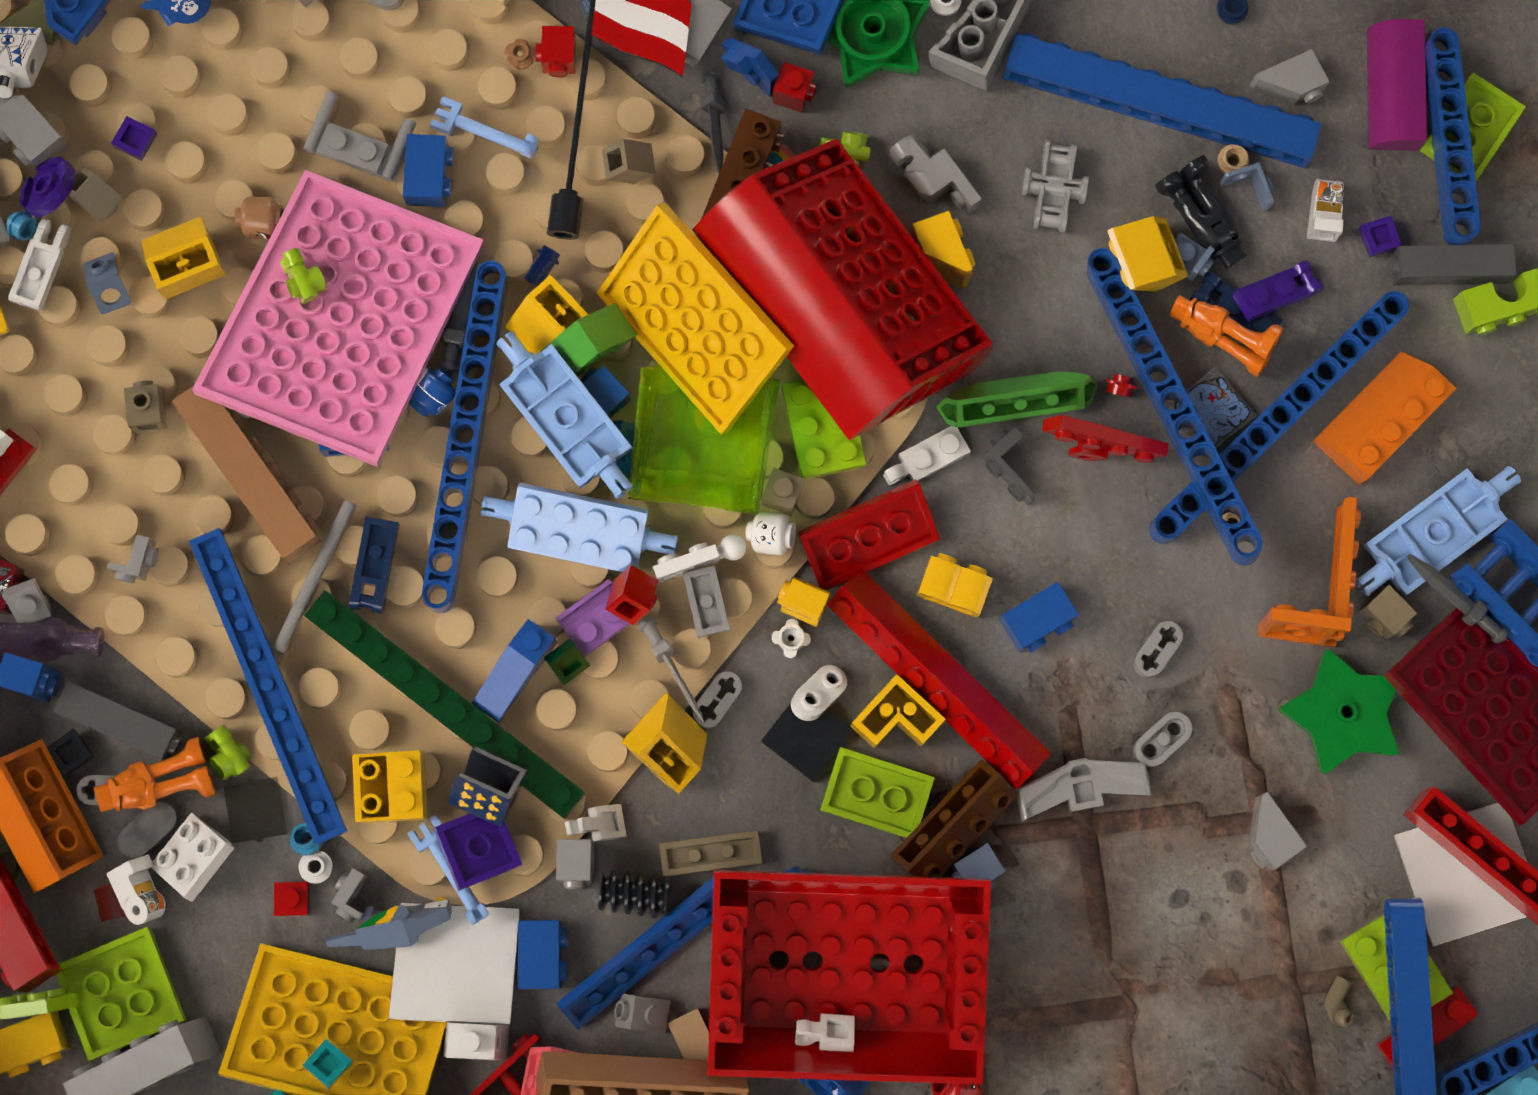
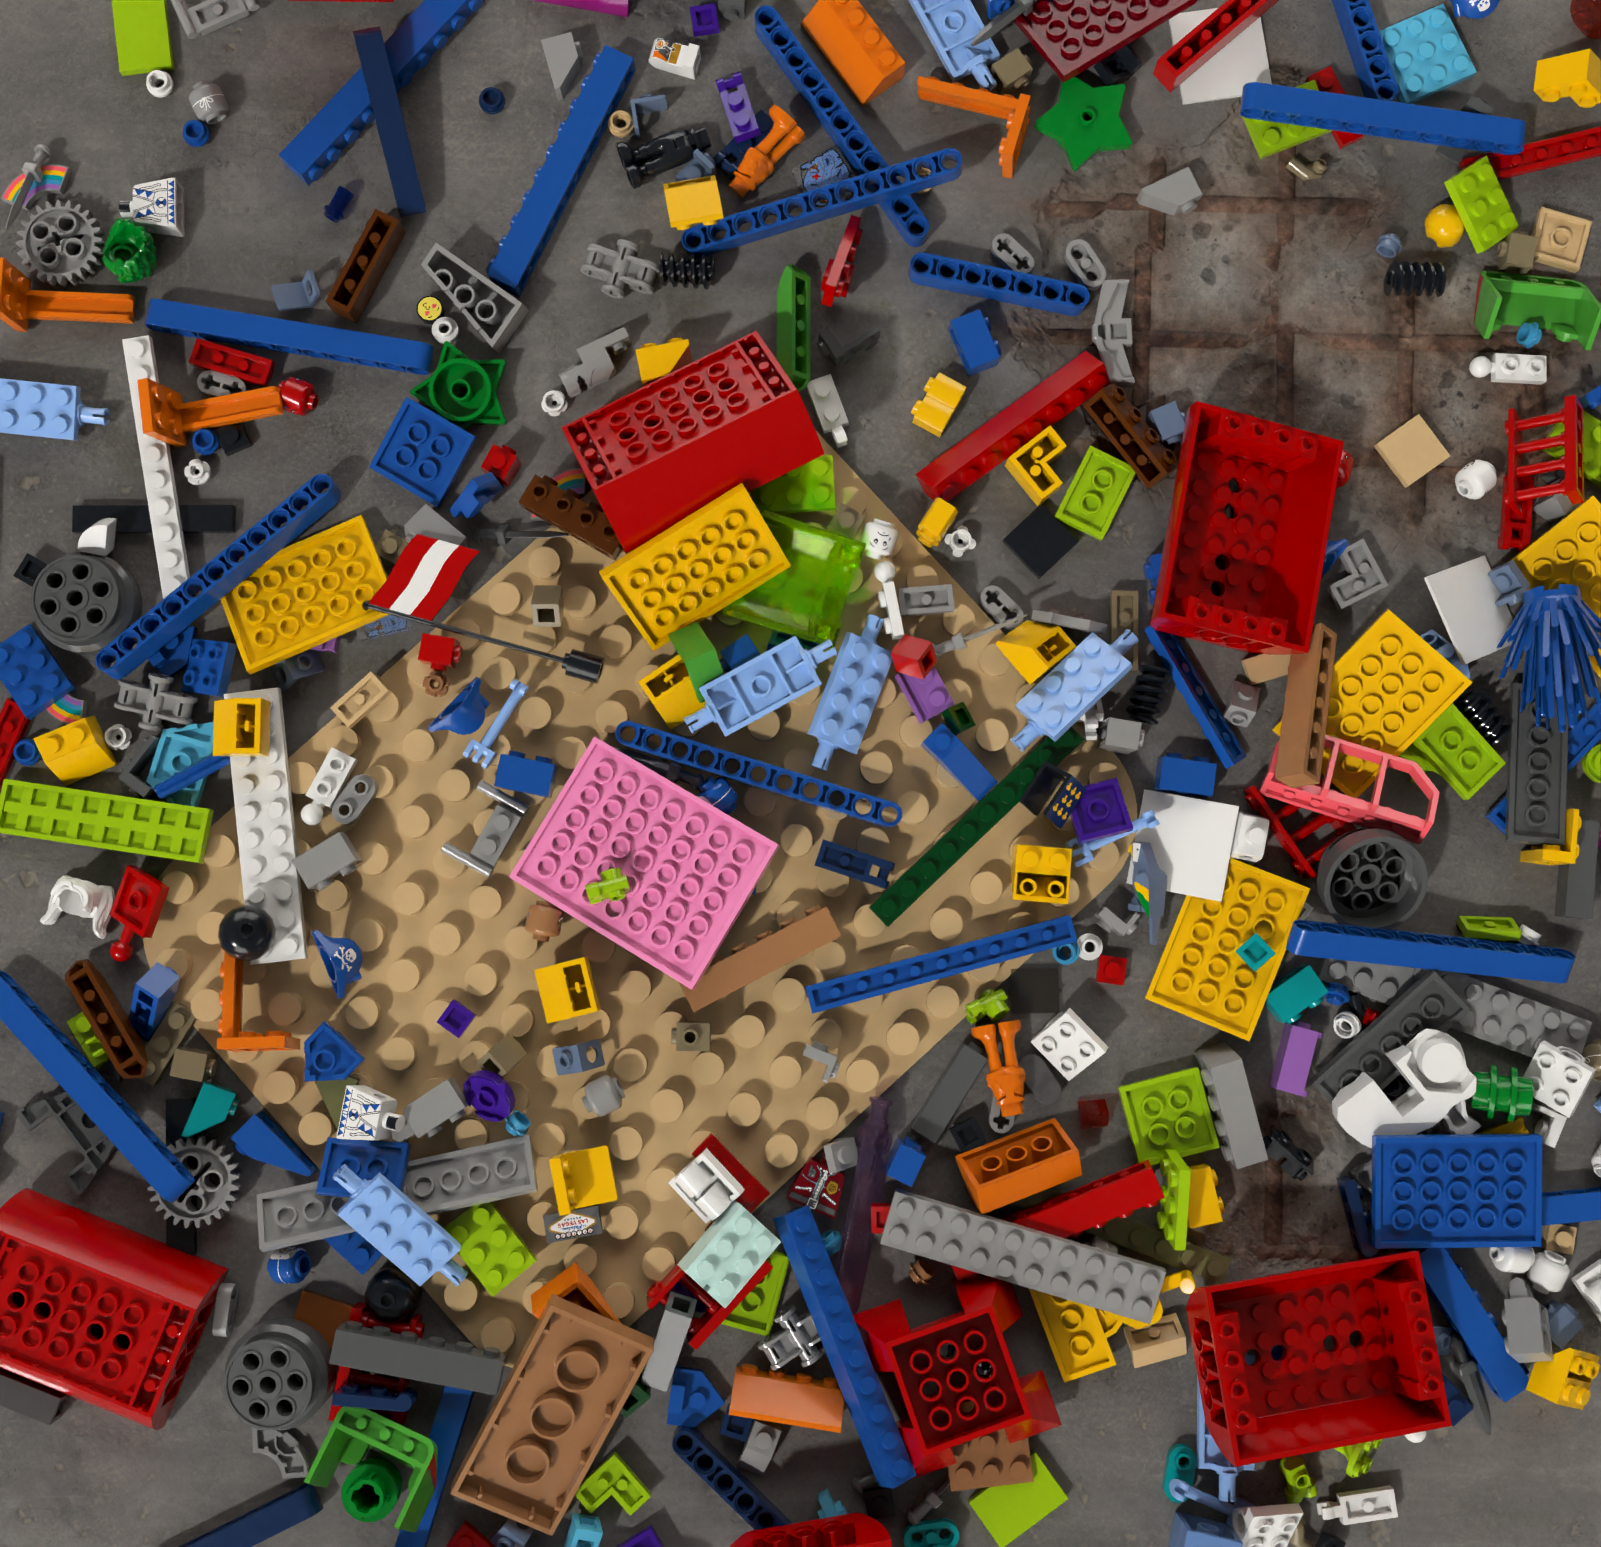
camera: 80 degrees left, 5 degrees up
(39, 266) = (556, 1112): white hinge -> none
(63, 316) = (603, 1095): none -> light grey head
(136, 890) = (1089, 1093): white leg -> none
(314, 577) = (855, 915): light grey piece -> none
(489, 89) = (464, 713): none -> blue hat
(542, 265) = (624, 692): clear blue pin -> none
(626, 796) = (1073, 687): none -> light blue plate
(710, 783) = (1069, 622): none -> light grey tile
(820, 691) = (1007, 523): white plate -> none
(832, 1032) = (1280, 554): white plate -> none
(854, 144) = (558, 442): lime plate -> none
(868, 535) = (888, 464): red plate -> none
(883, 129) = (549, 398): none -> white plate
(1063, 262) = (687, 270): none -> black piece
(1121, 385) = (795, 245): red plate -> none
(1125, 622) = (1011, 280): none -> blue beam
(1421, 743) = (1118, 66): none -> black bracket

